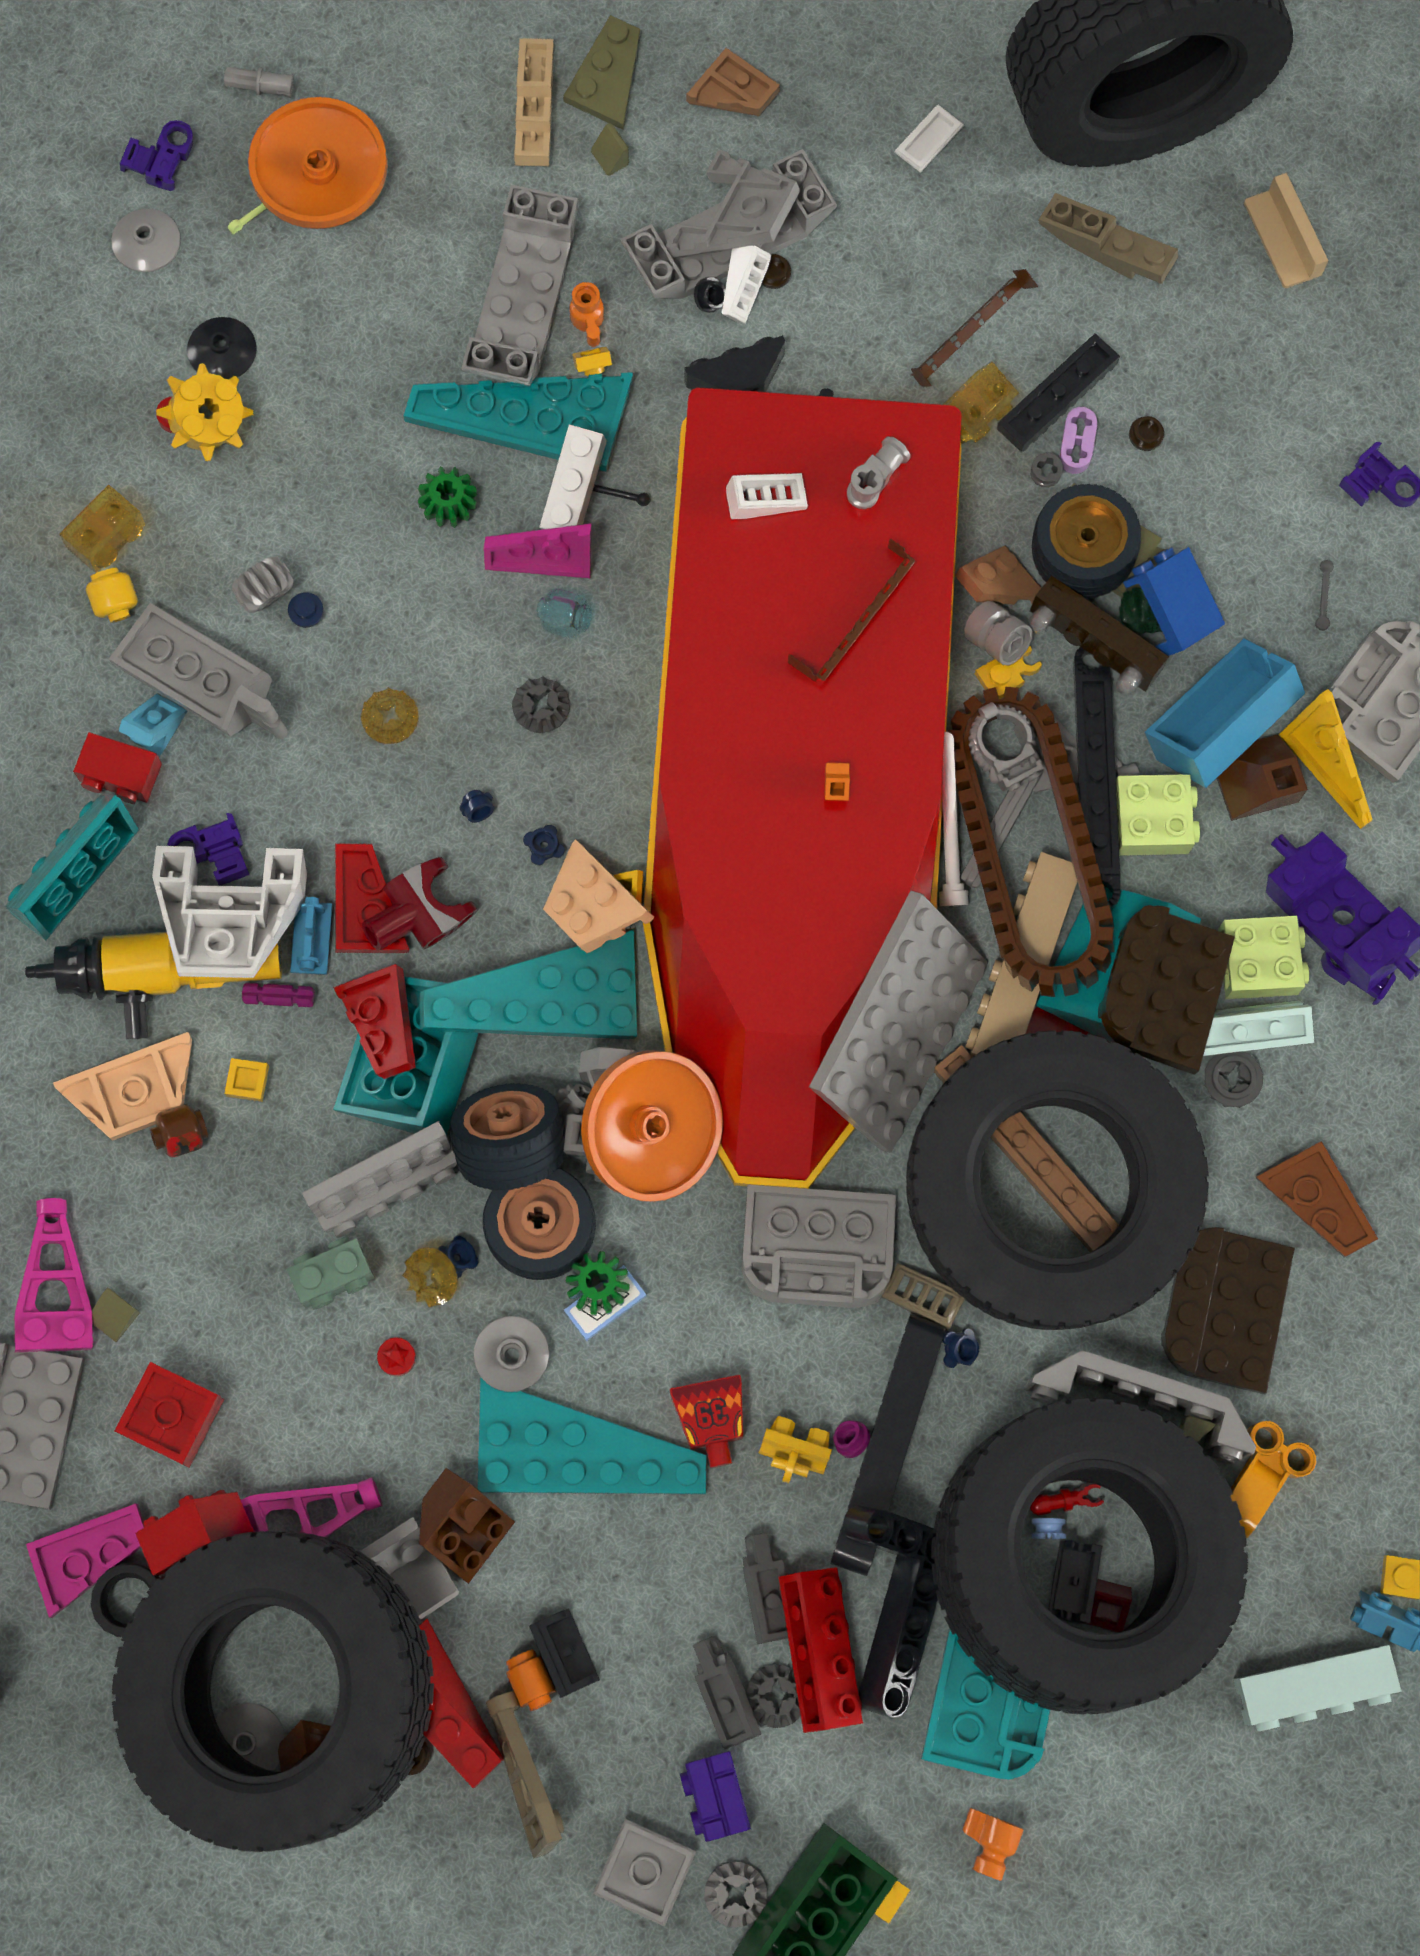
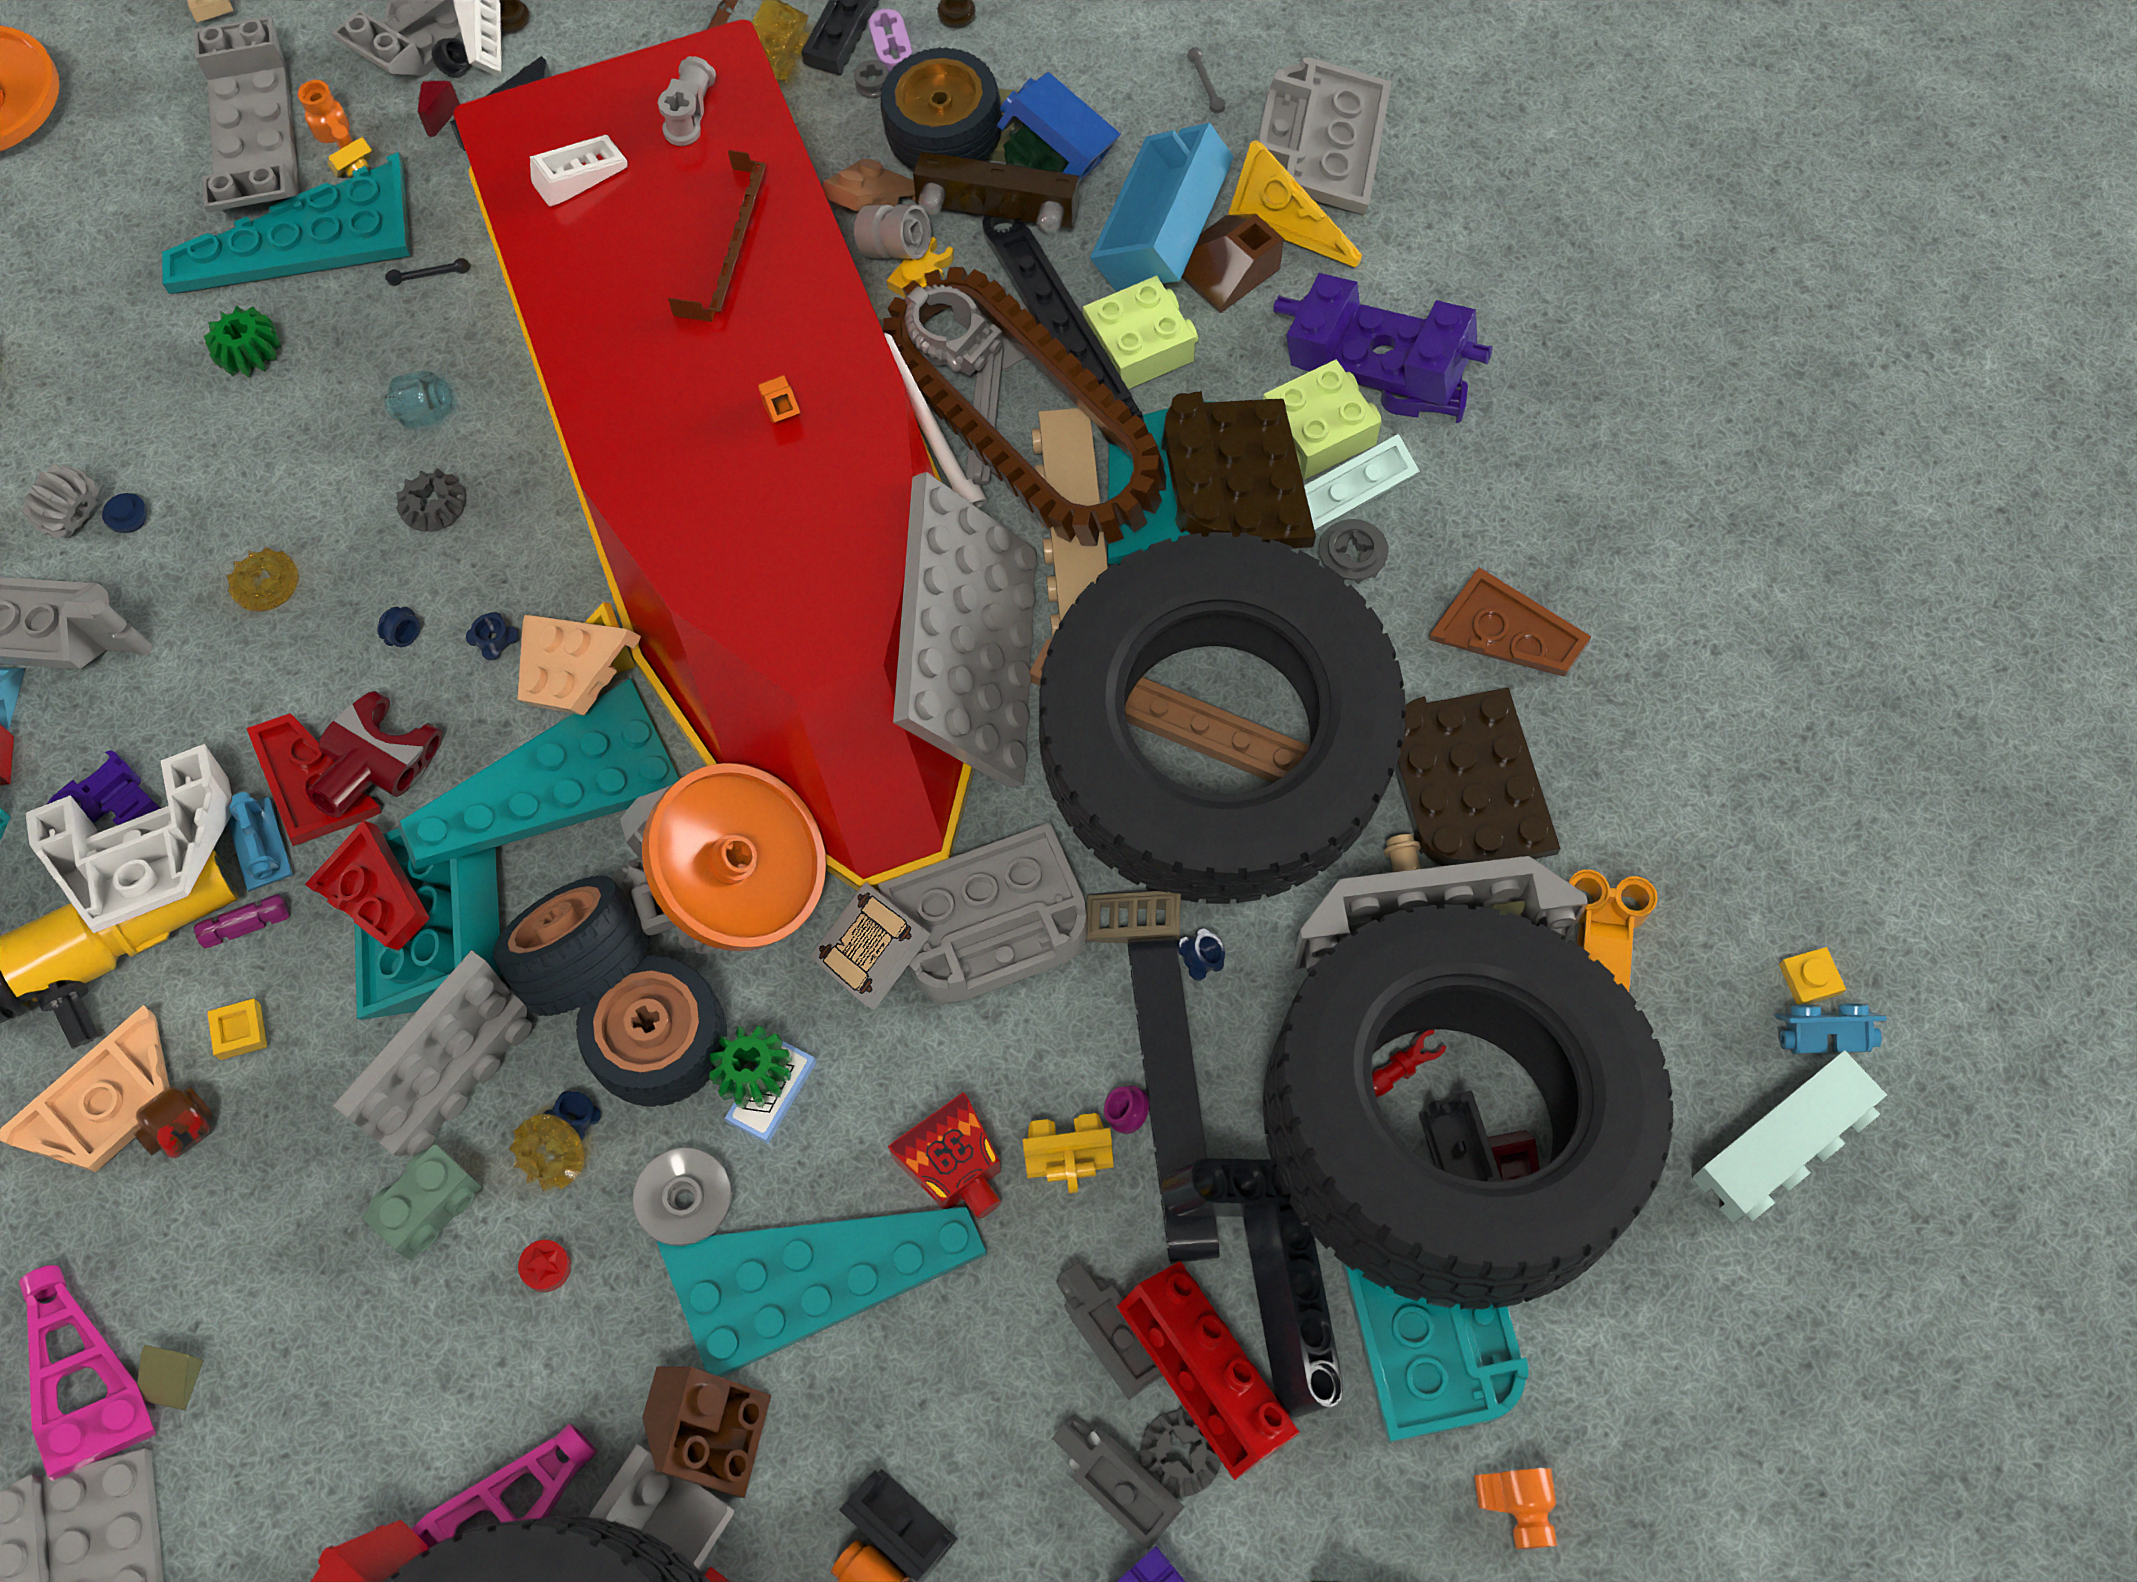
camera: 20 degrees left, 10 degrees down
(169, 1414) = (278, 1464): red container -> none
(544, 552) = (368, 348): dark pink wing -> none
(574, 478) = (373, 269): white brick -> none
(679, 339) = (436, 105): none -> dark red slope
(721, 1231) = (870, 946): none -> tile
(1048, 1527) = (1400, 1102): light blue bush -> none
(1145, 1348) = (1403, 852): none -> tan pin

